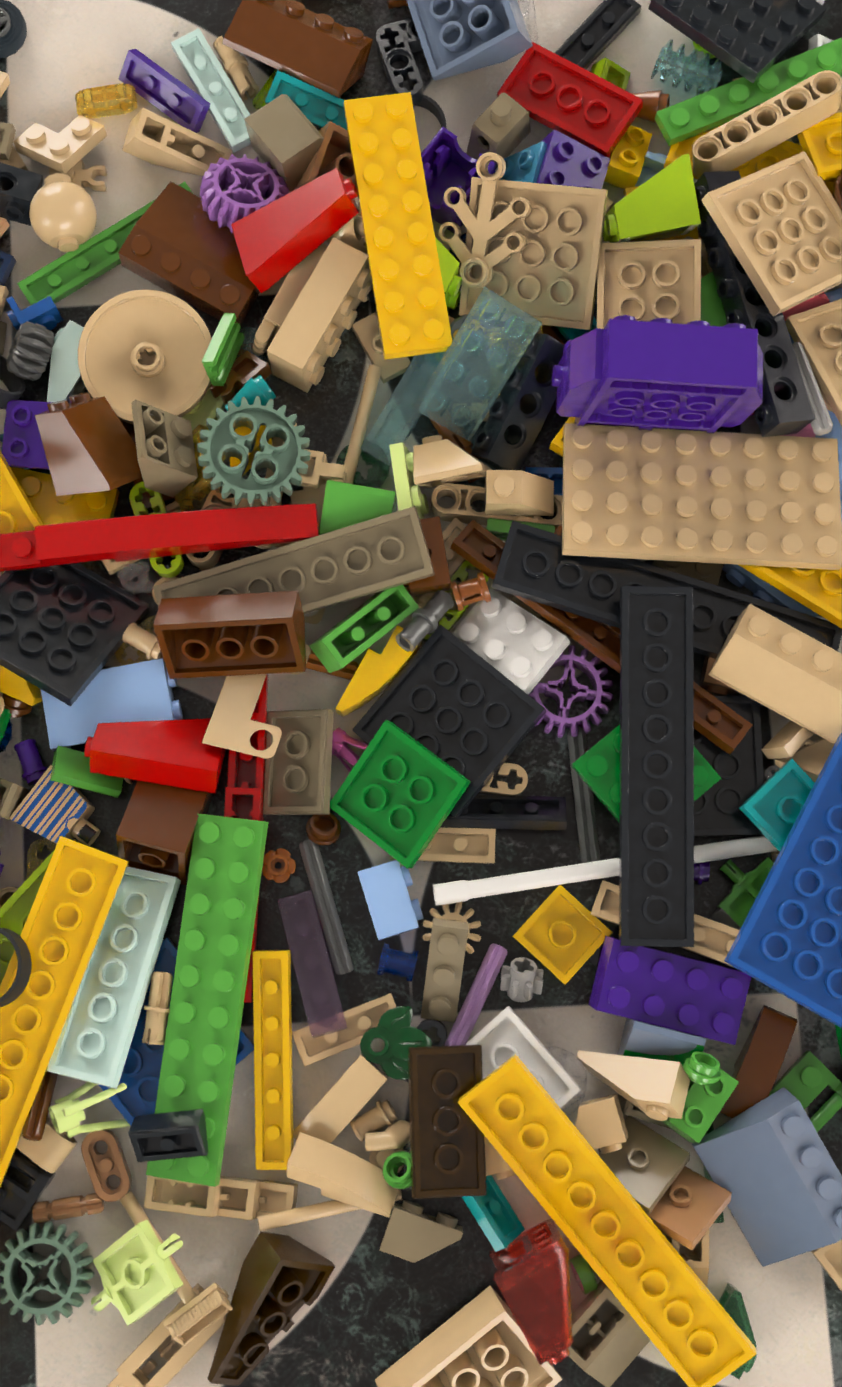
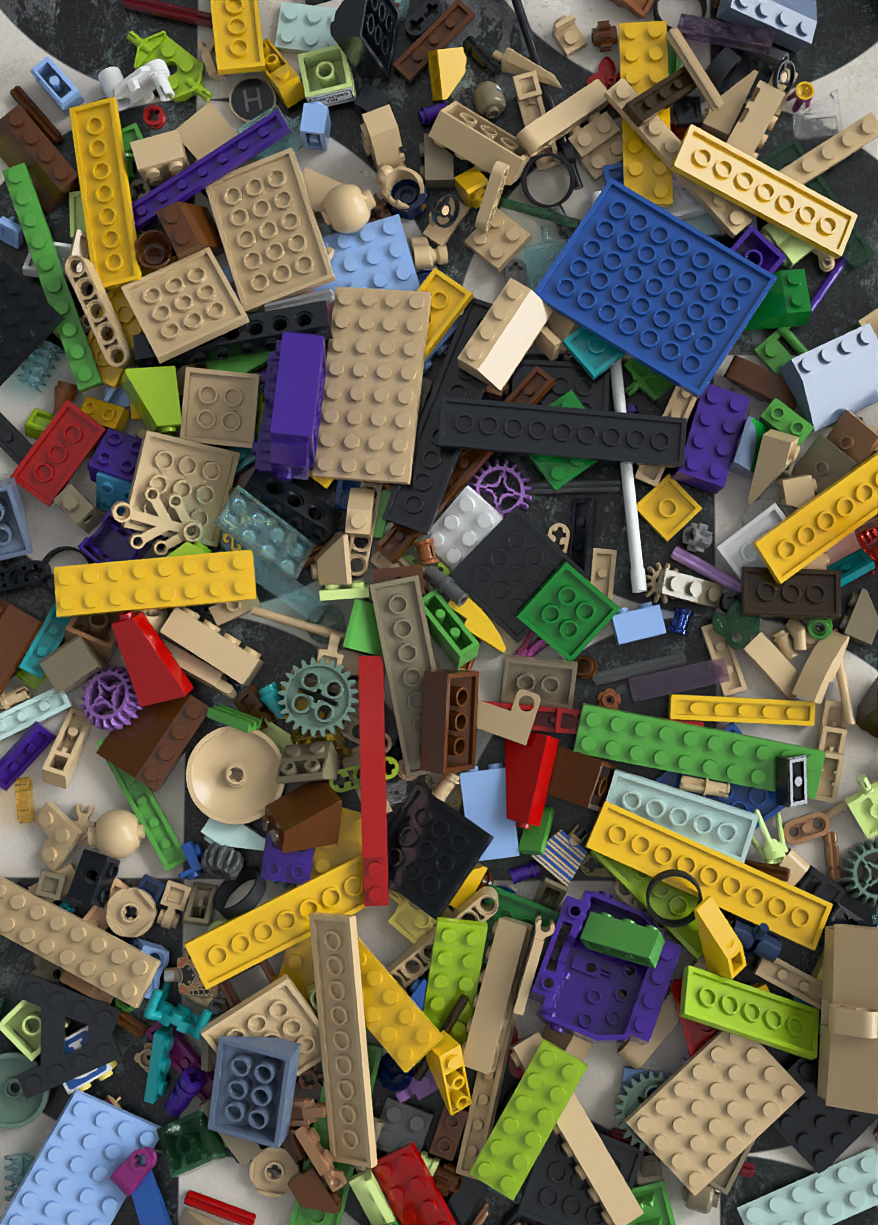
camera: 85 degrees left, 5 degrees up
(702, 1068) = (767, 420): bright green plate -> none

